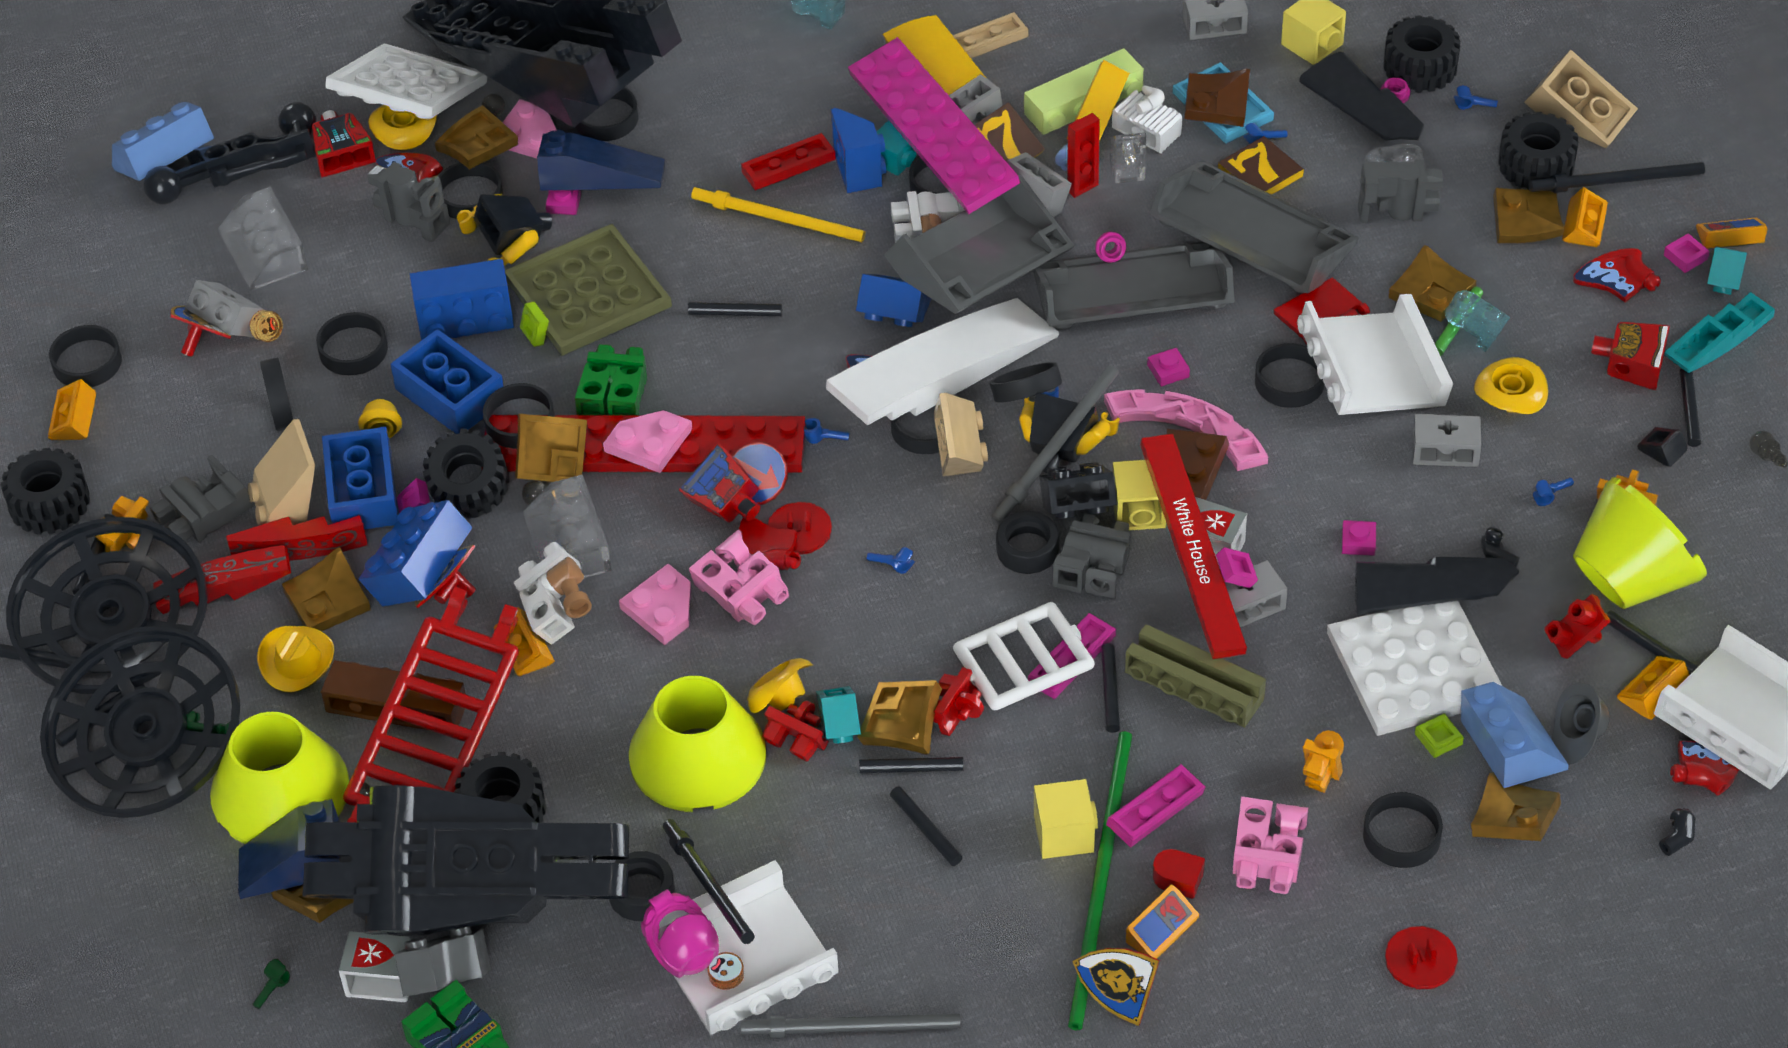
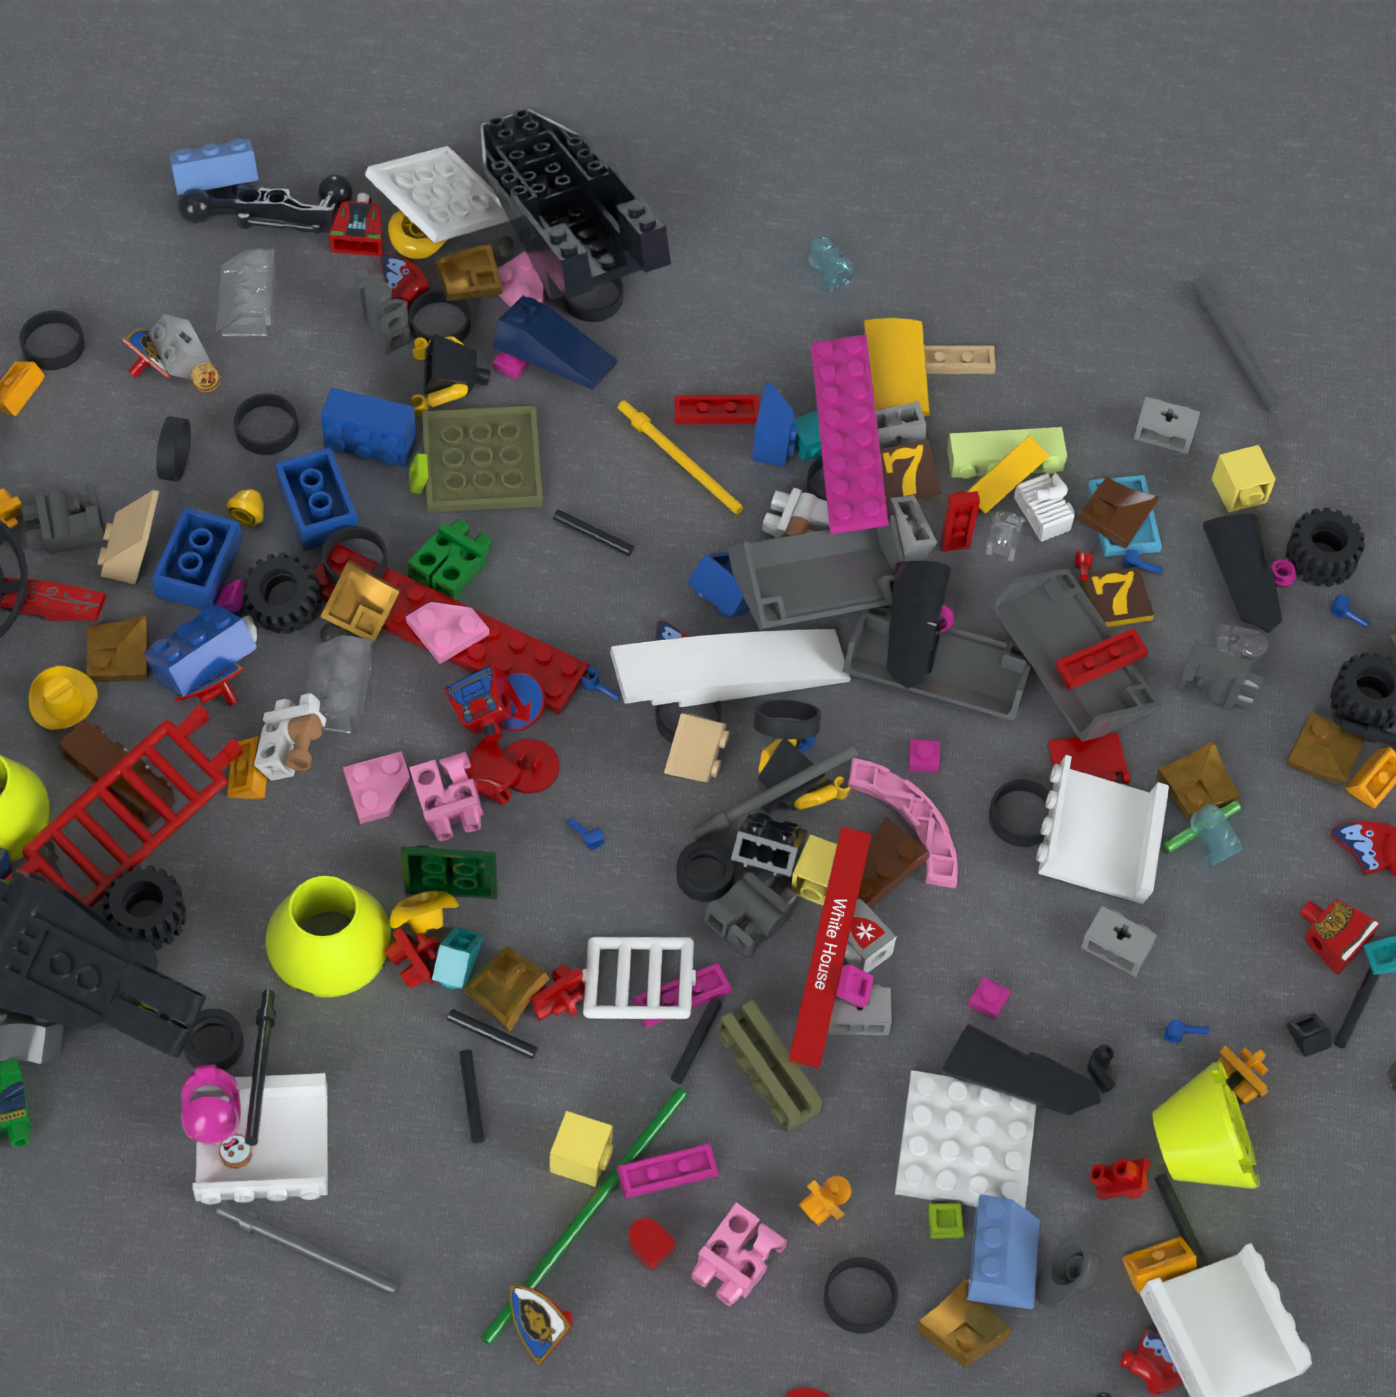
camera: 20 degrees right, 10 degrees up
(302, 540) = (122, 592): red slope -> none
(789, 630) = (450, 870): none -> dark green slope
(1090, 251) = (915, 619): none -> black panel
(1161, 923) = (608, 1283): slope -> none
(1211, 152) = (1083, 562): none -> red hand
(1282, 218) = (1101, 658): none -> red plate
(1513, 385) = (1207, 916): yellow hat -> none

